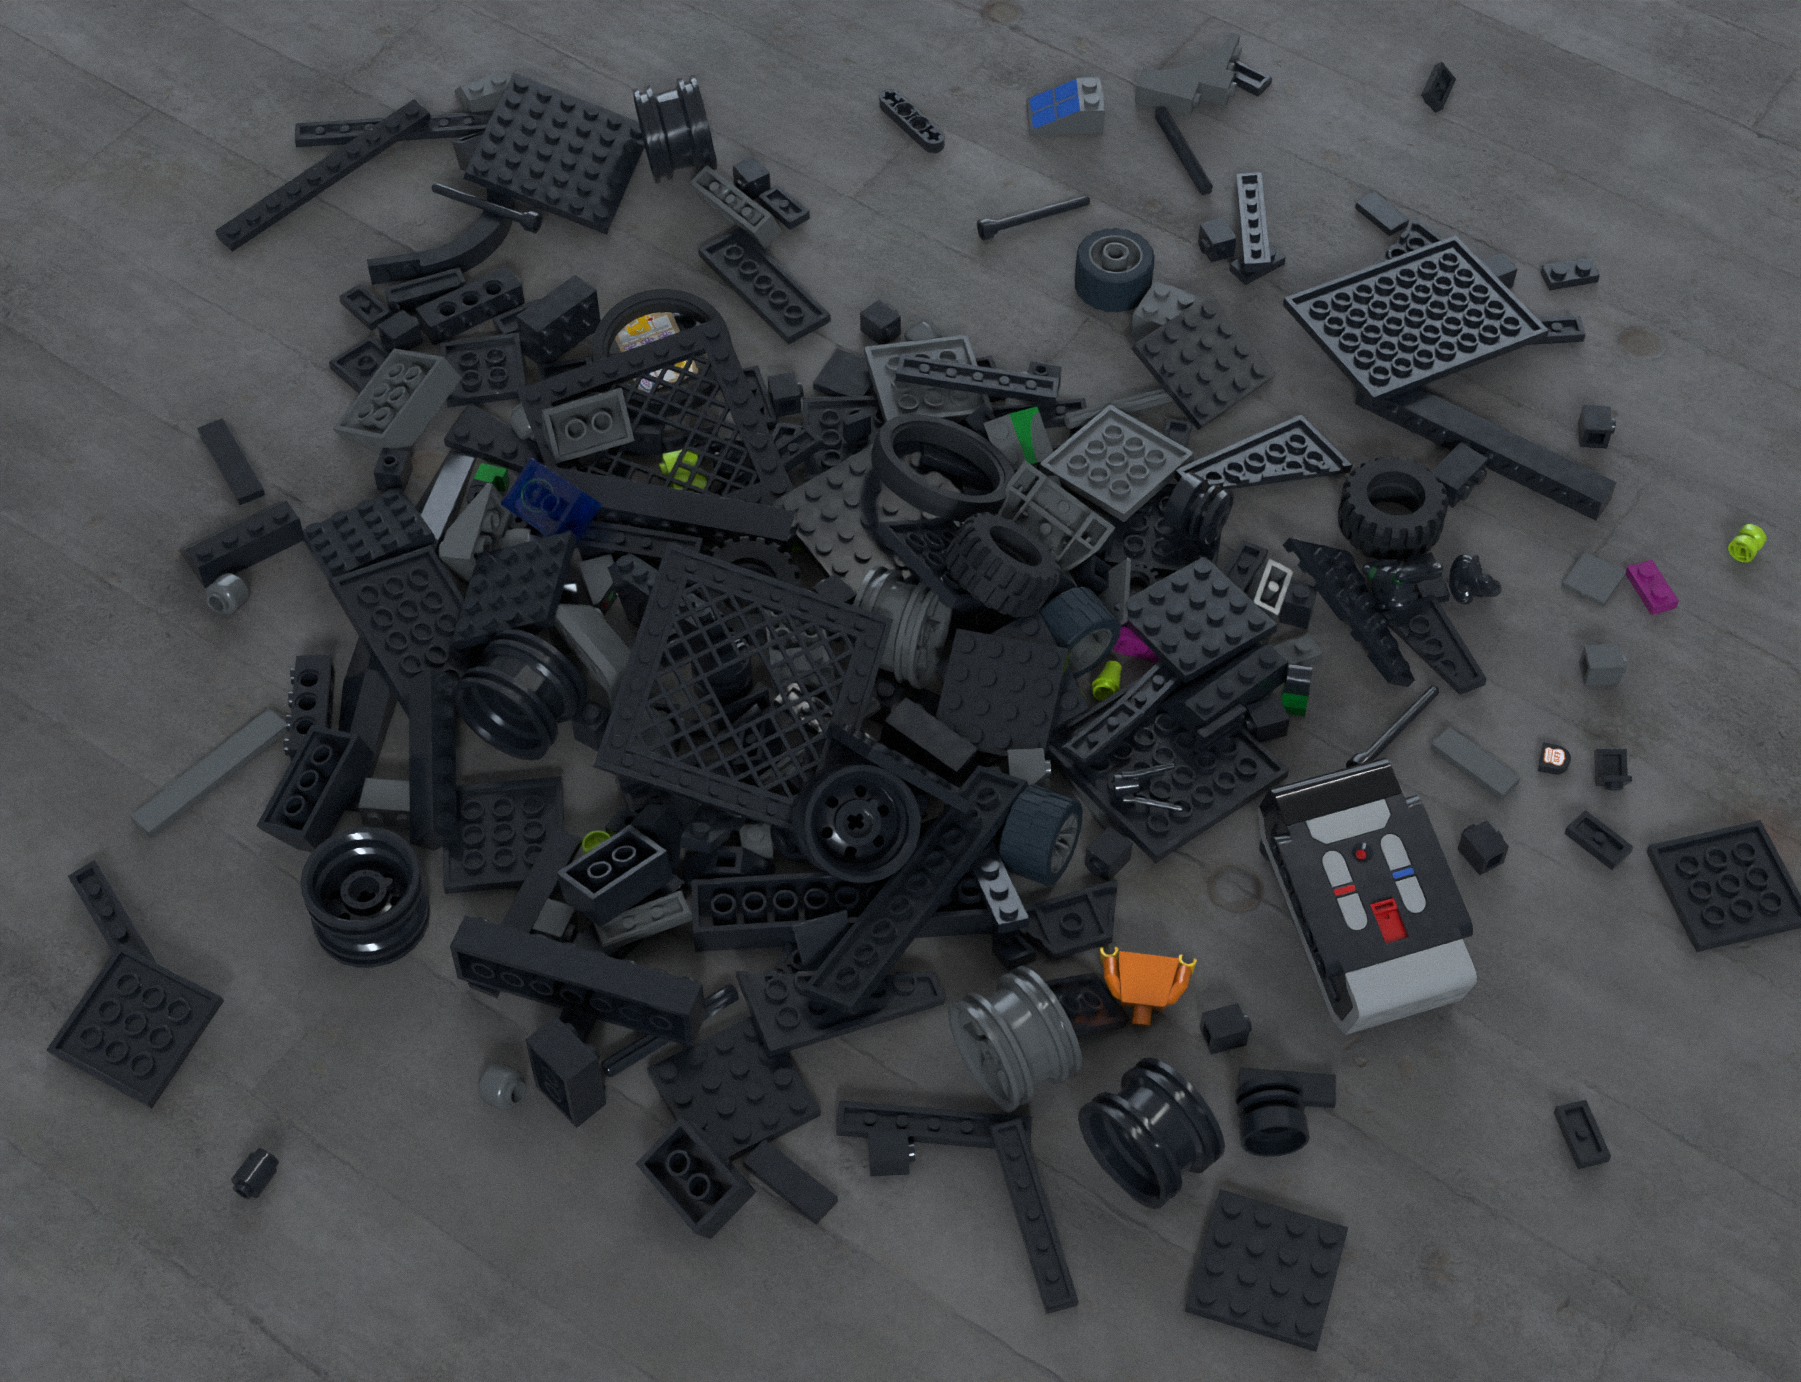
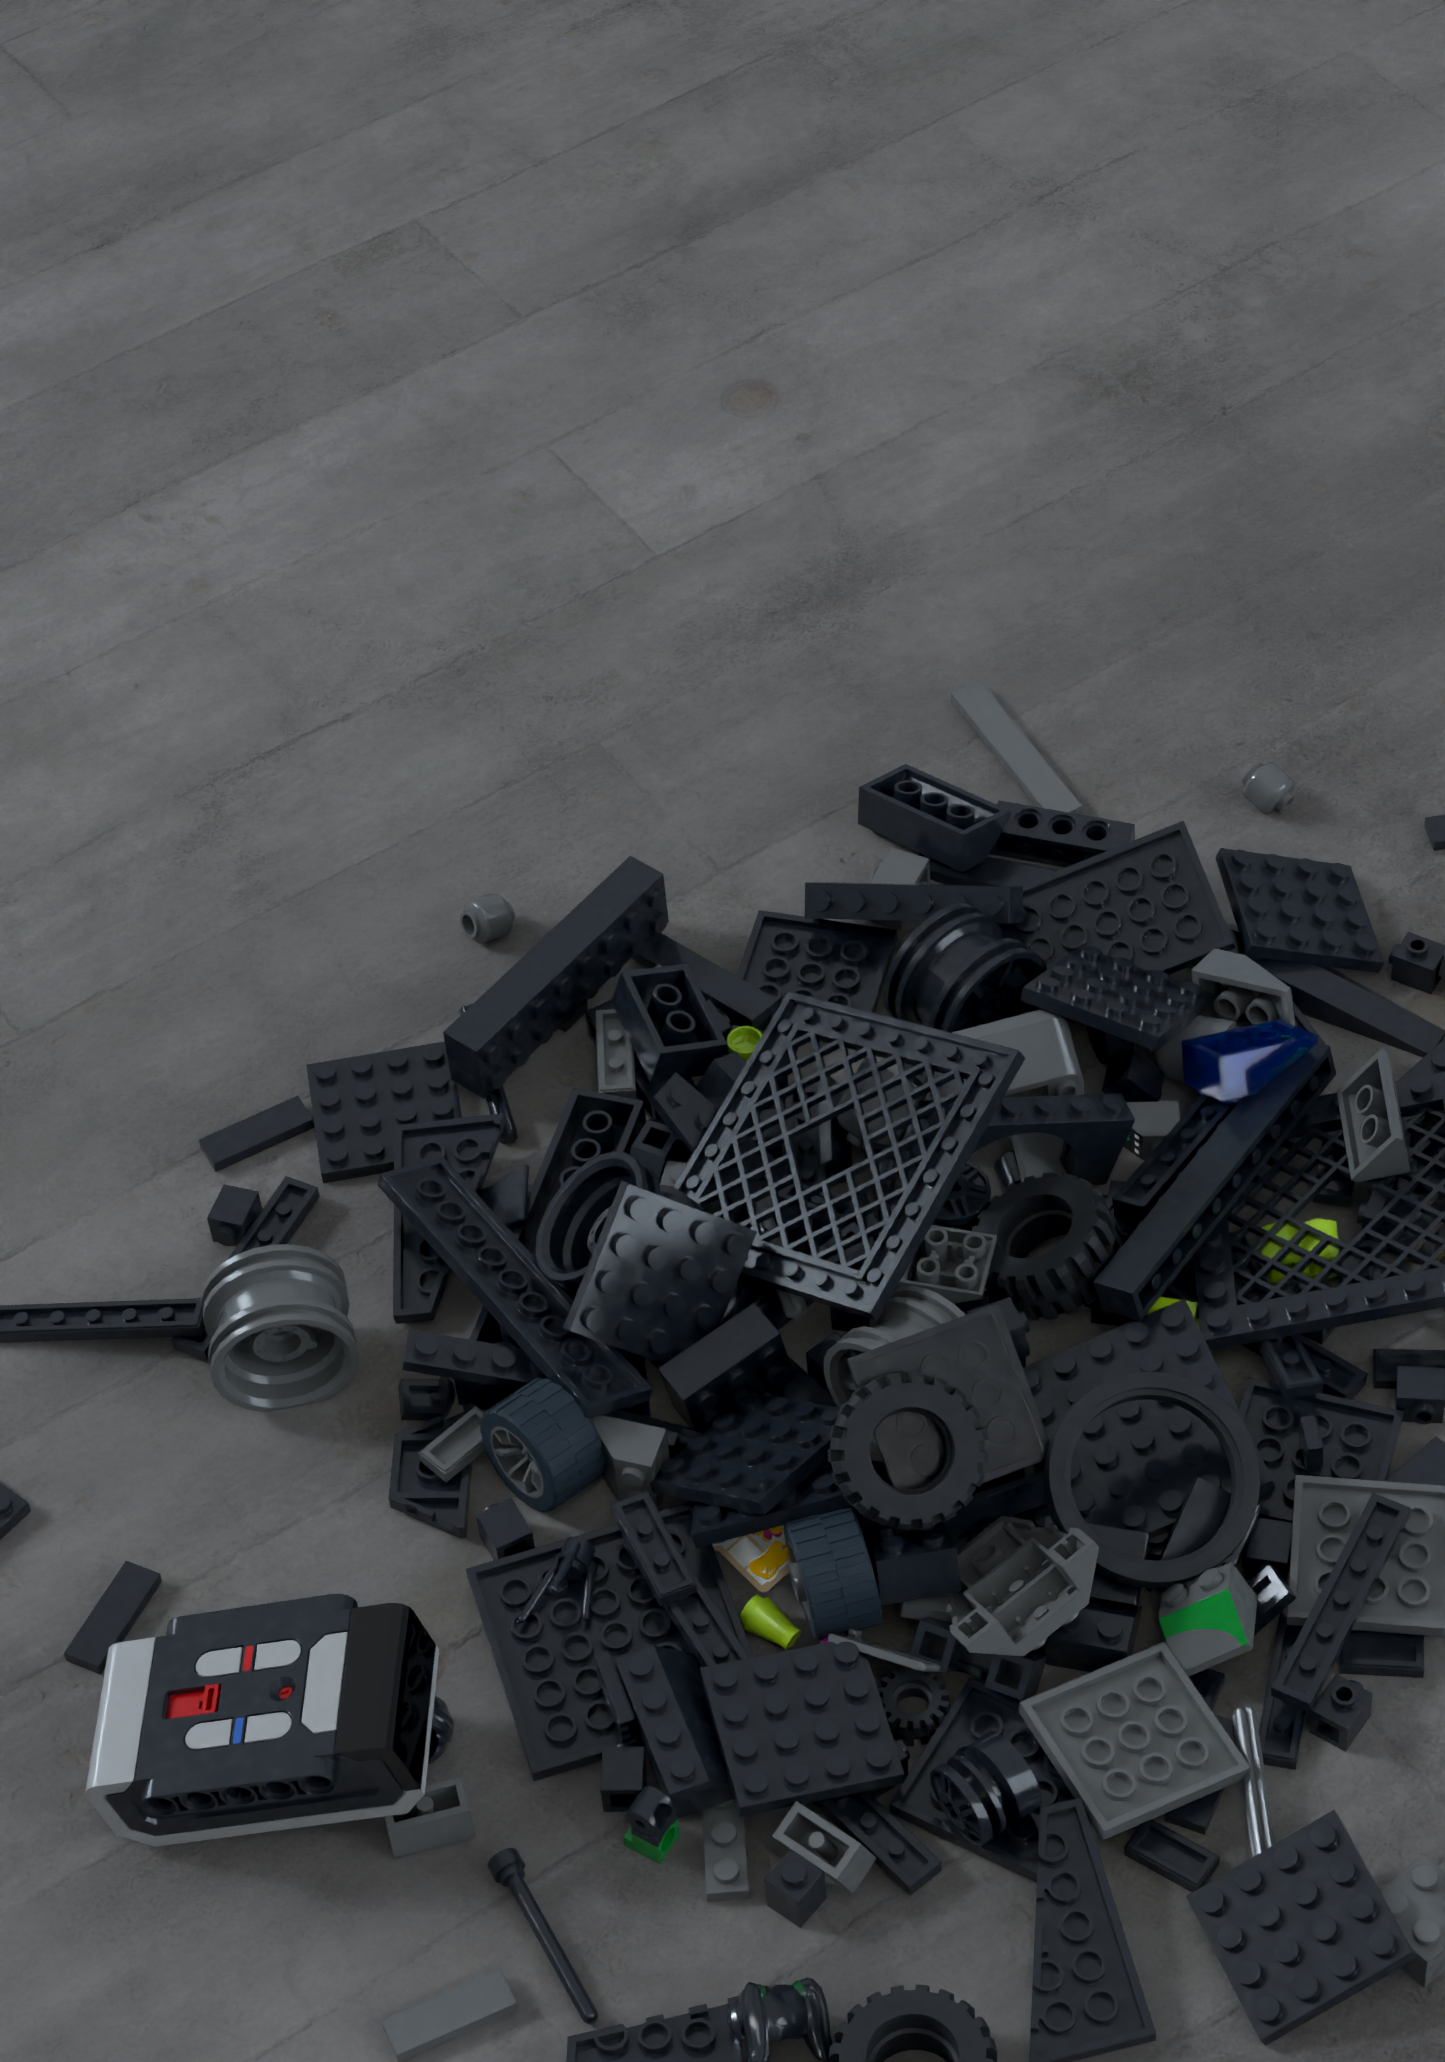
camera: 115 degrees right, 5 degrees down
(107, 910) = (826, 660): black plate -> none
(135, 1026) = (703, 654): black plate -> none
(244, 543) = (1353, 811): black slope -> none
(255, 1174) = (491, 724): black brick -> none
(374, 916) = (759, 830): black wheel -> none
(488, 474) = (1352, 1042): green leg -> none
(566, 1071) = (453, 946): black brick -> none
(695, 1177) = (286, 1038): black brick -> none
(1050, 902) = (455, 1446): none -> dark grey tile
(1088, 1004) = (305, 1423): black plate -> none
(1145, 981) = (310, 1506): orange torso -> none
(1151, 1132) = (97, 1417): black wheel -> none
(1225, 1028) = (212, 1572): black brick -> none
(1272, 1116) = (68, 1562): black wheel -> none
(1350, 599) = (803, 1935): black wing -> none
(1483, 847) = (312, 1956): black brick -> none

